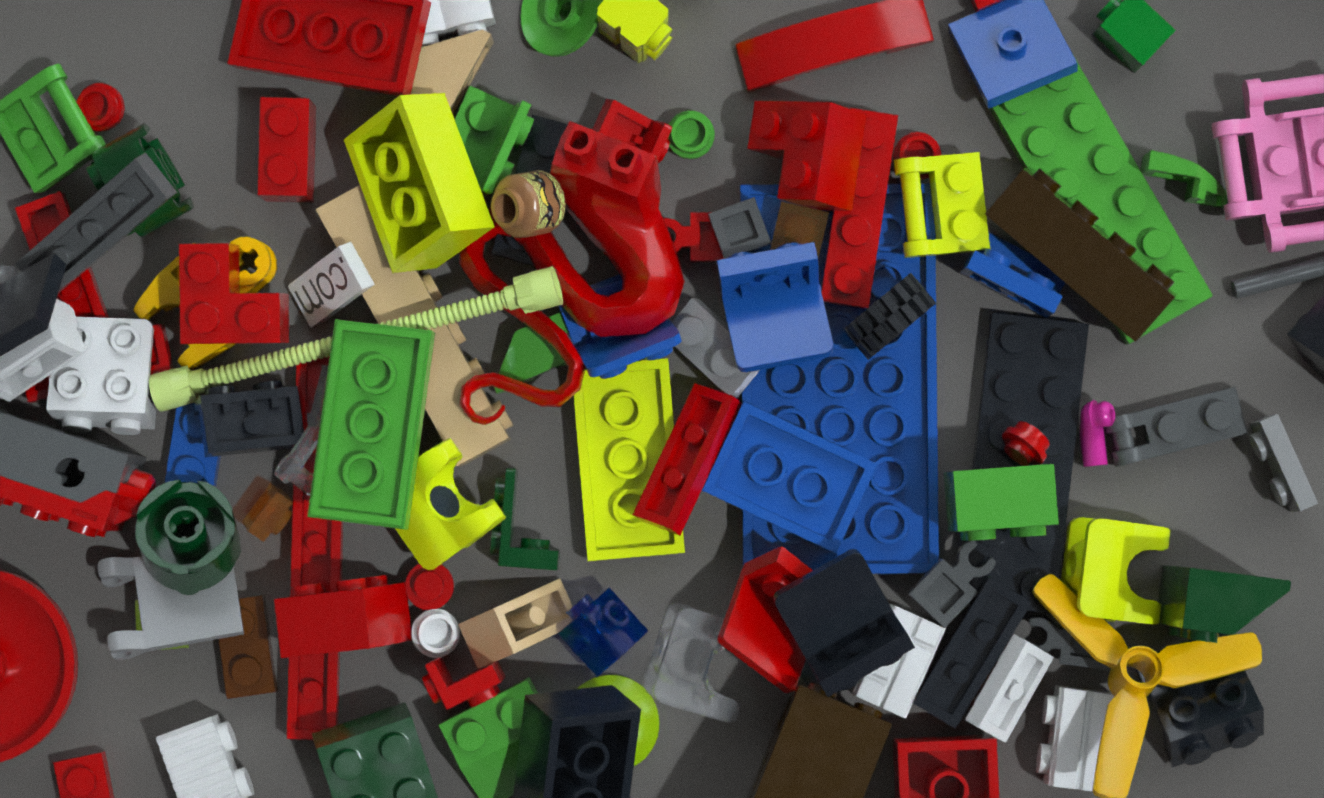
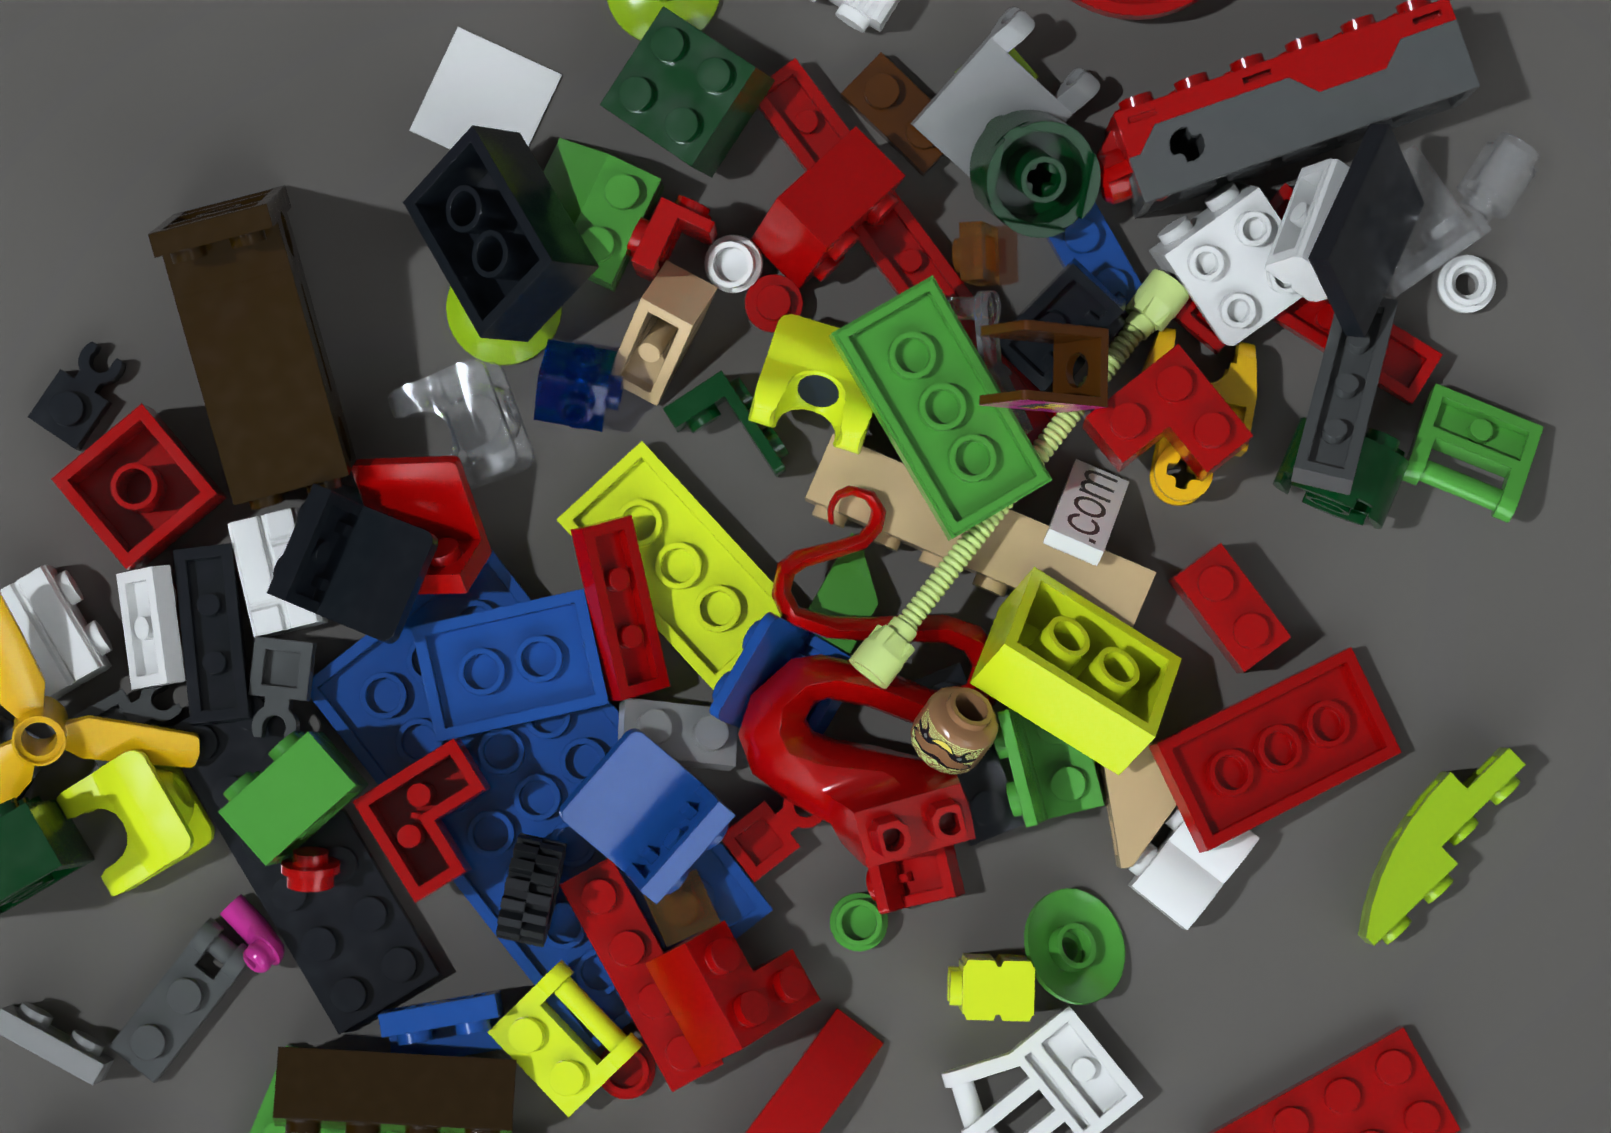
camera: 145 degrees right, 0 degrees up
(101, 106) = (1438, 514): red plate -> none
(255, 400) = (1069, 344): none -> reddish brown piece
(739, 228) = (739, 865): dark grey plate -> none
(930, 431) = (408, 817): none -> red brick

